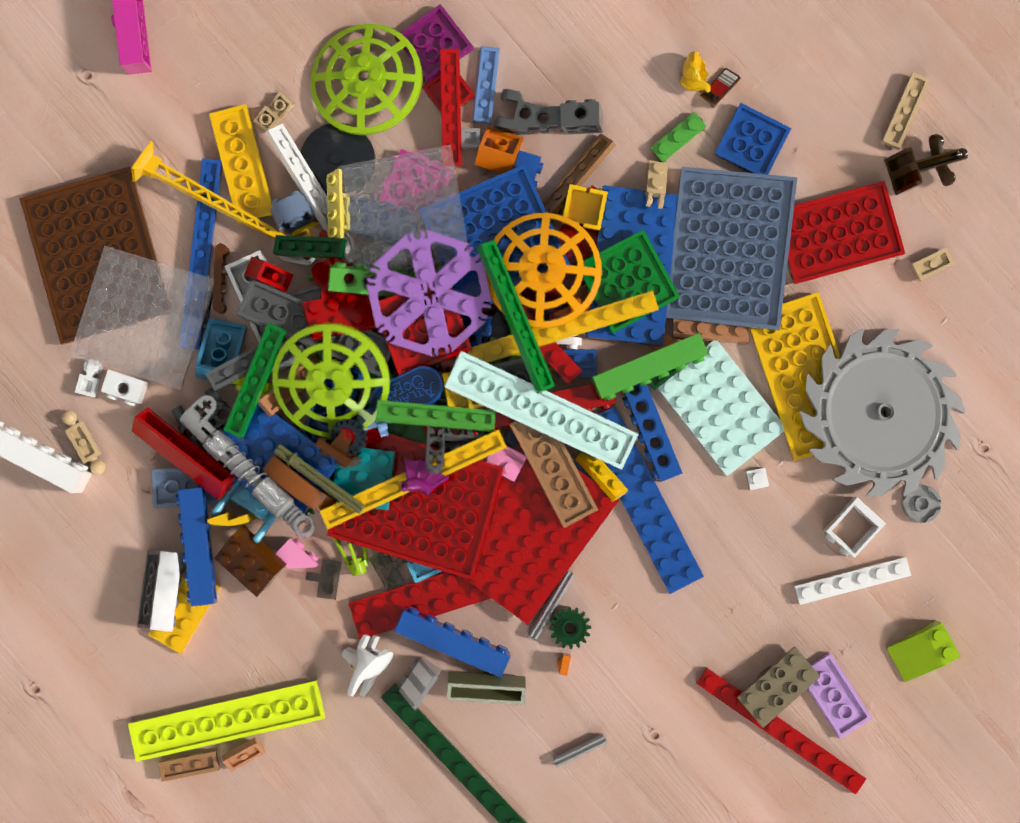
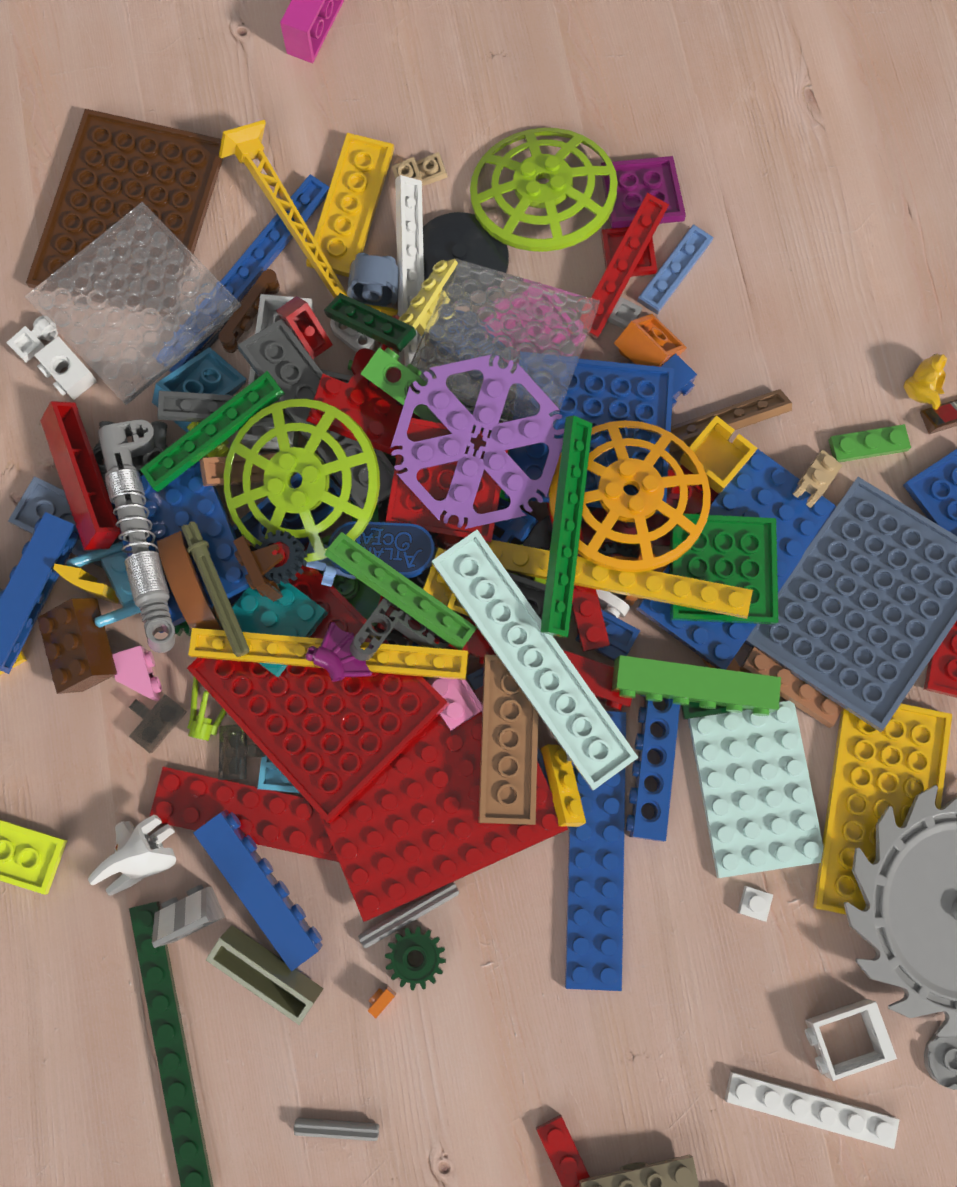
camera: 25 degrees right, 10 degrees down
(560, 117) = (756, 350): dark grey brick -> none

